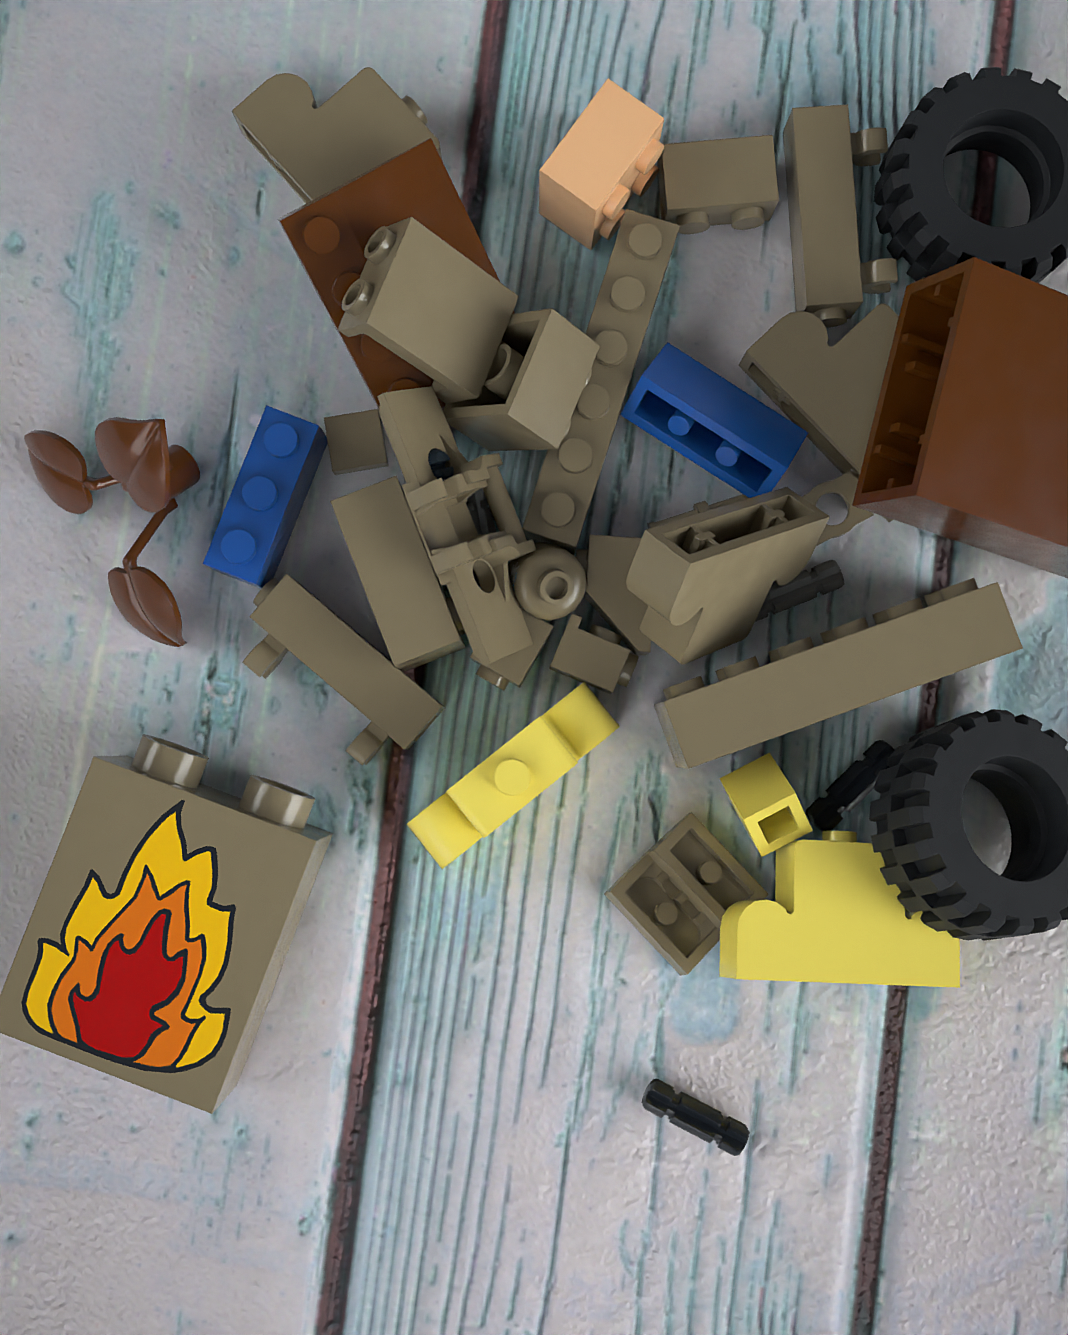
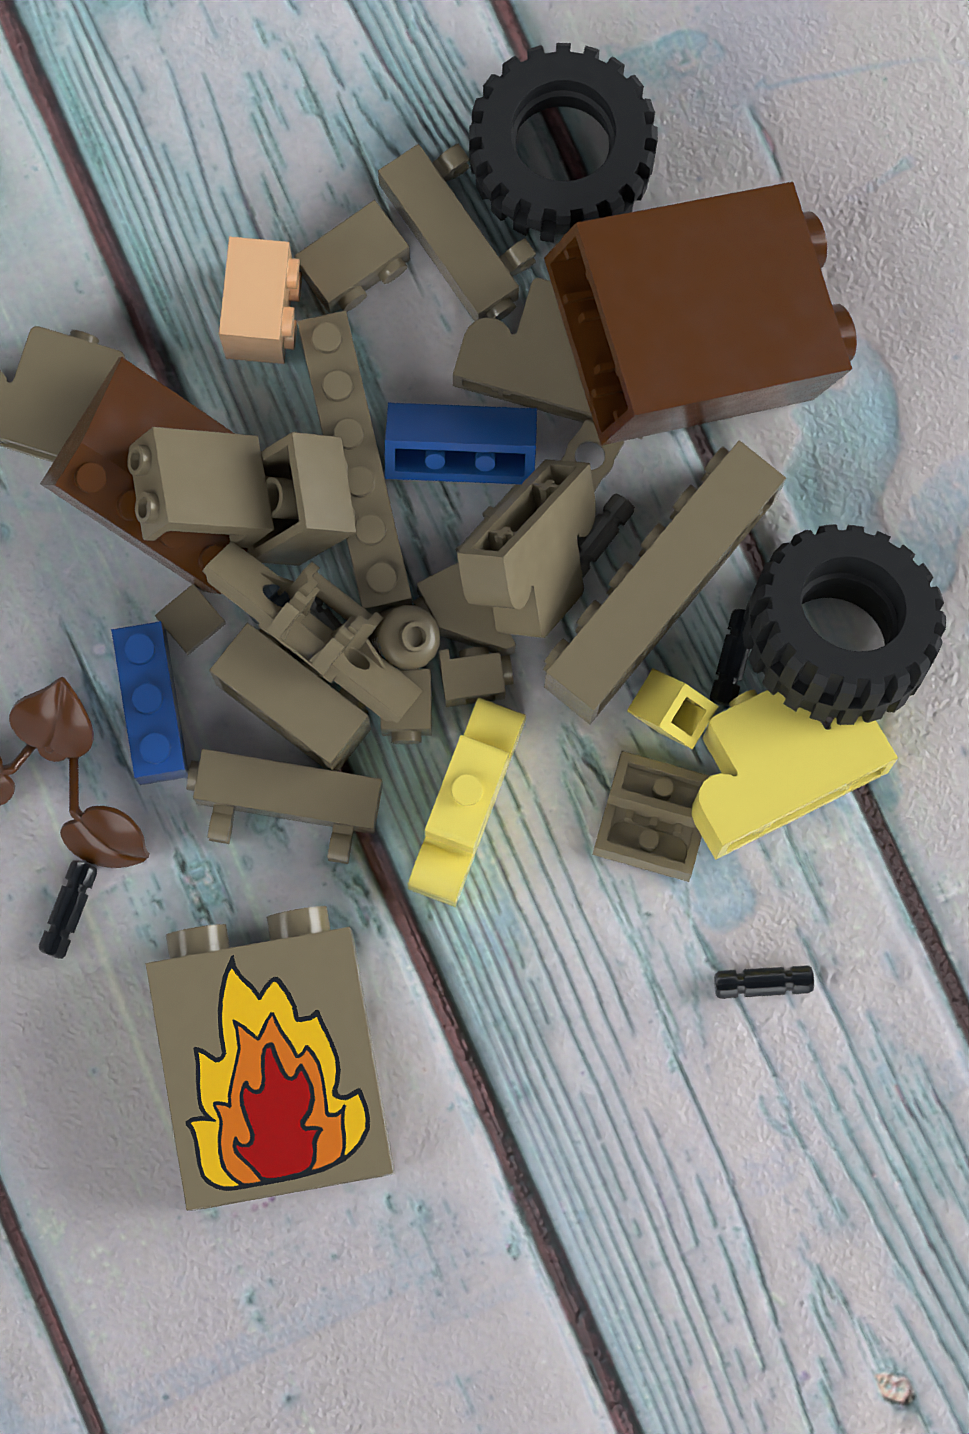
camera: 30 degrees left, 5 degrees down
(76, 650) = (67, 909): none -> black axle

